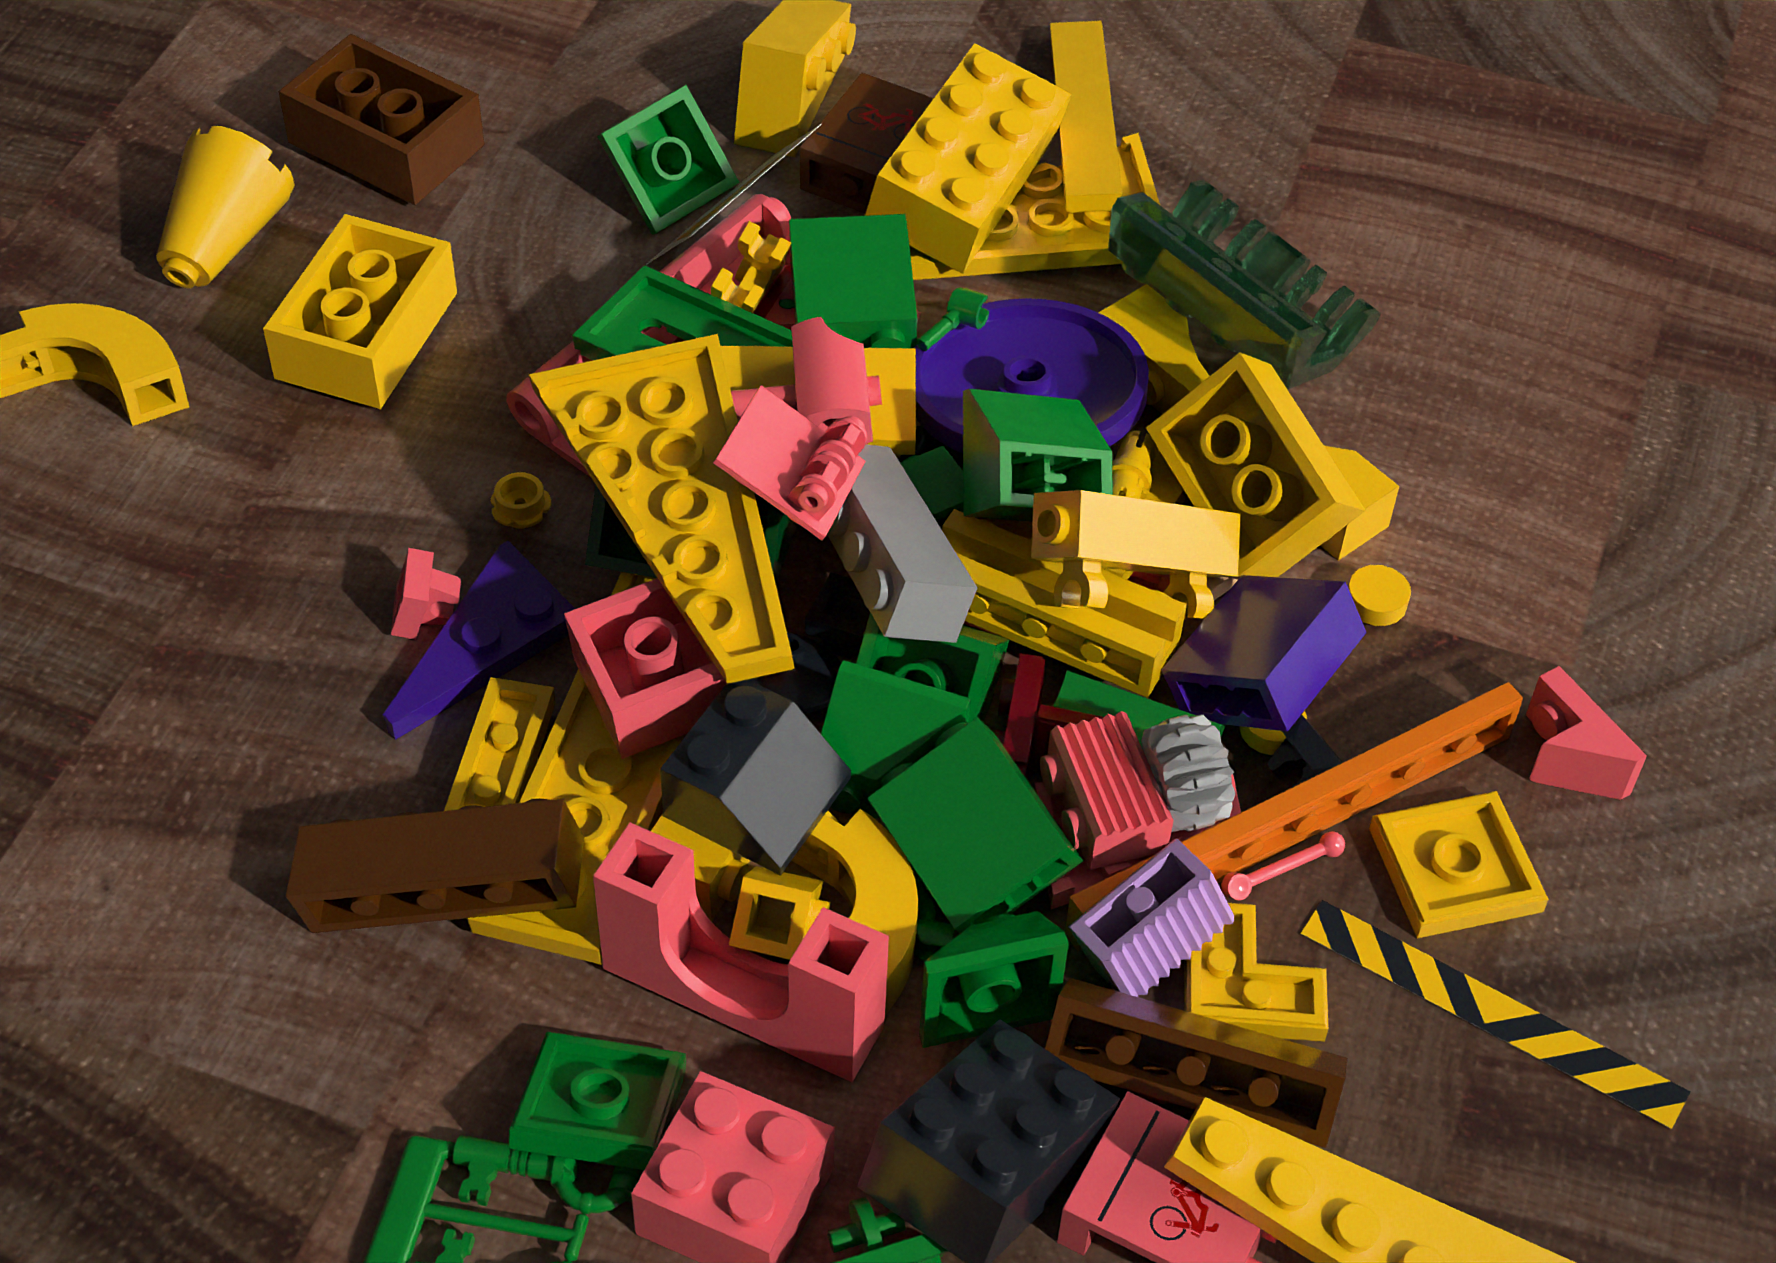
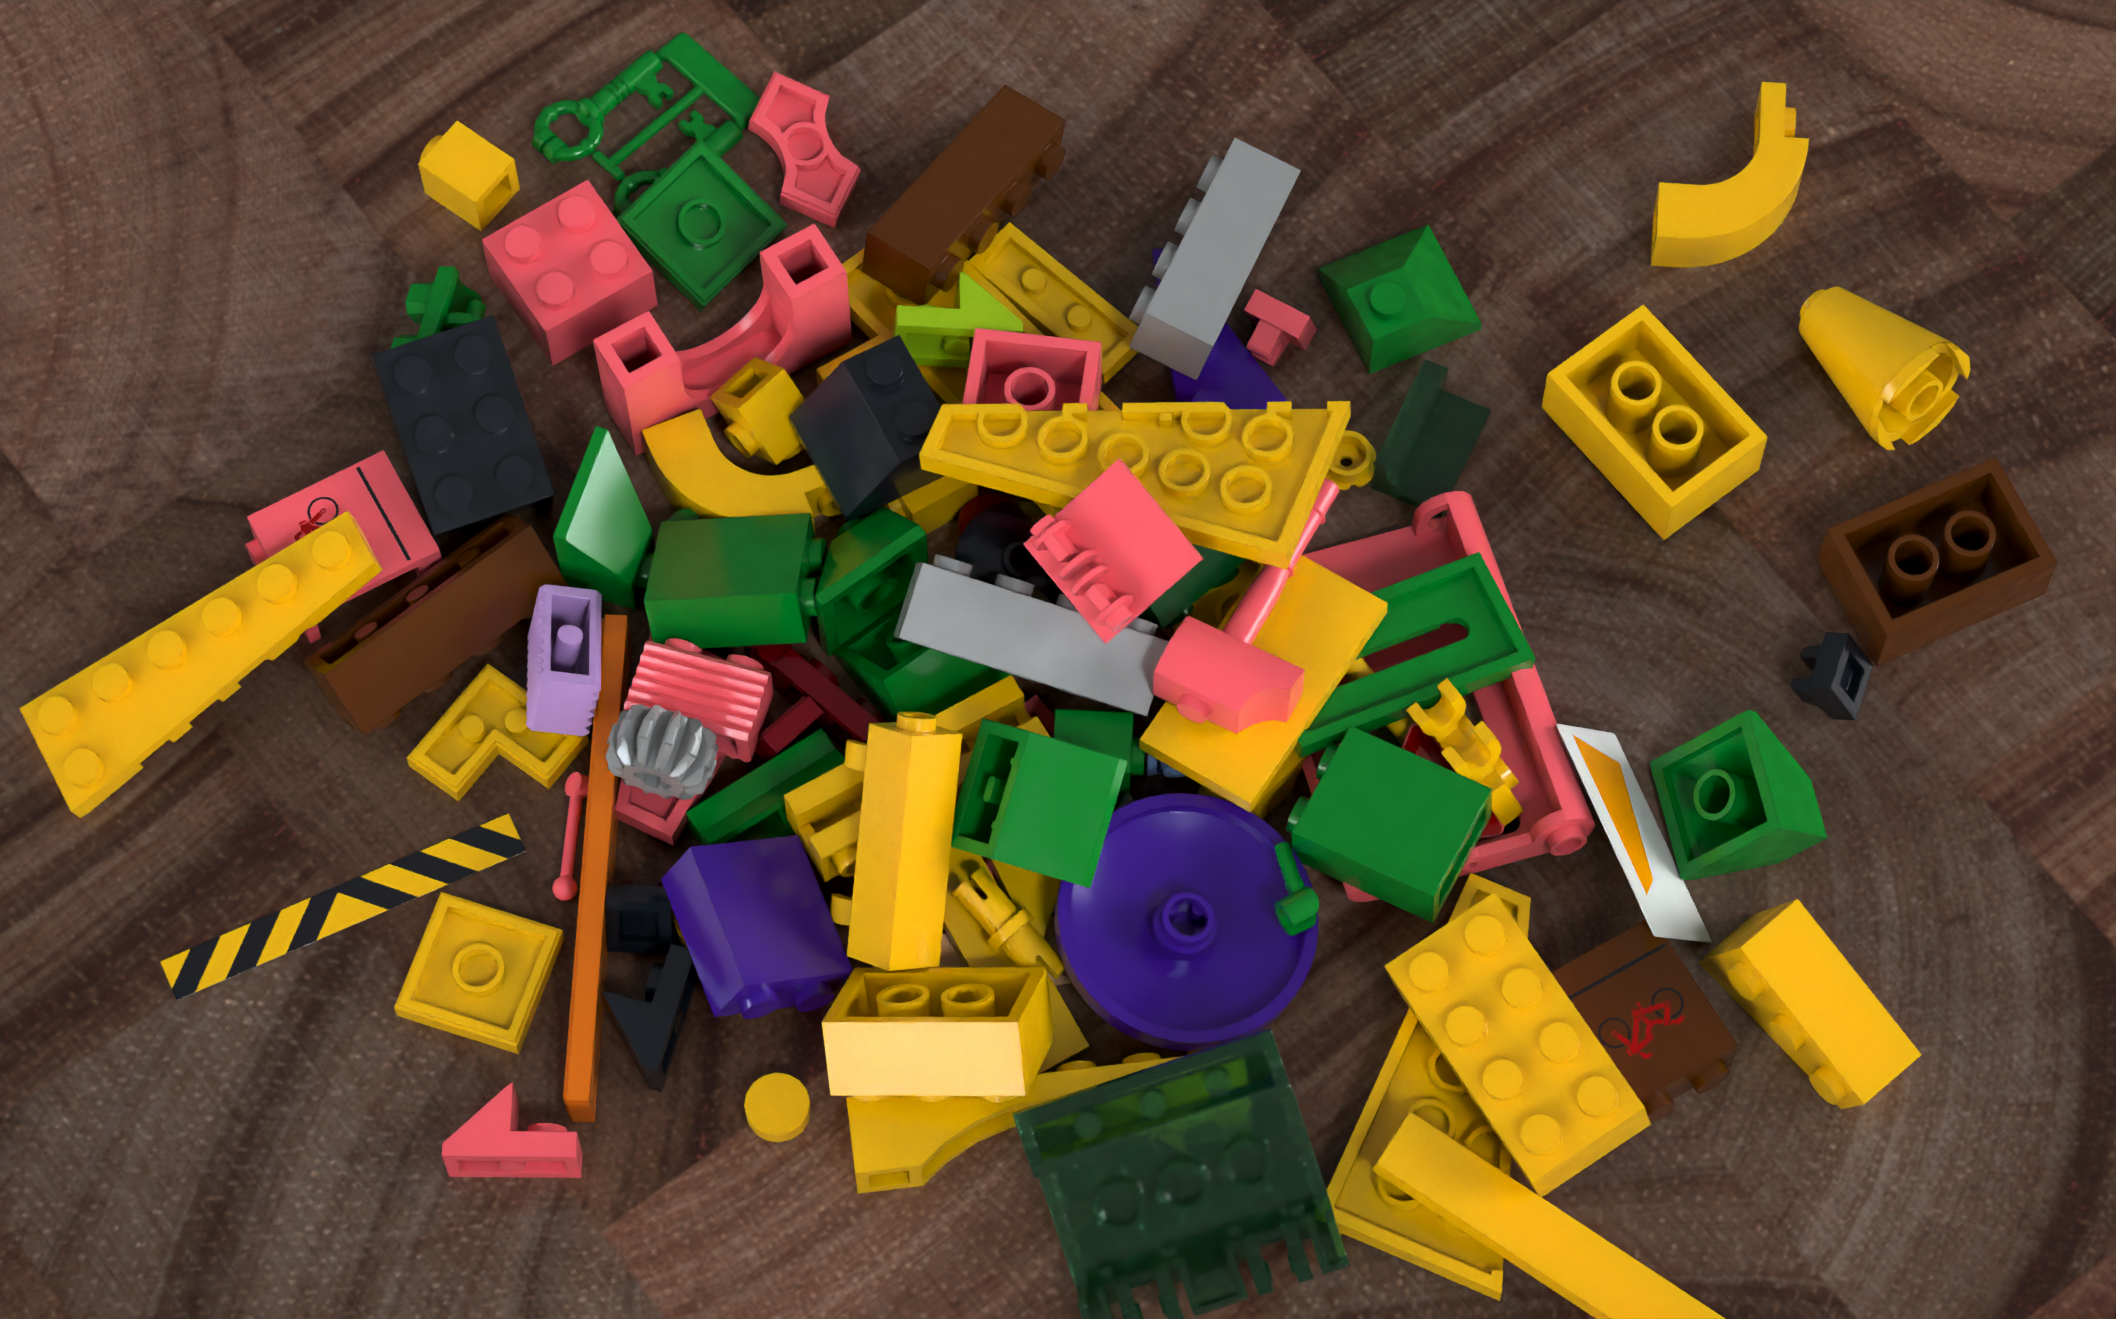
camera: 125 degrees right, 15 degrees up
(335, 538) = (1399, 299): none -> green slope
(386, 641) = (1213, 259): none -> light grey brick
(425, 1088) = (814, 171): none -> coral tile
(460, 463) = (1428, 440): none -> clear green panel
(513, 146) = (1837, 677): none -> black tile
(592, 770) = (946, 334): none -> lime slope
(1385, 694) = (654, 1028): none -> black slope

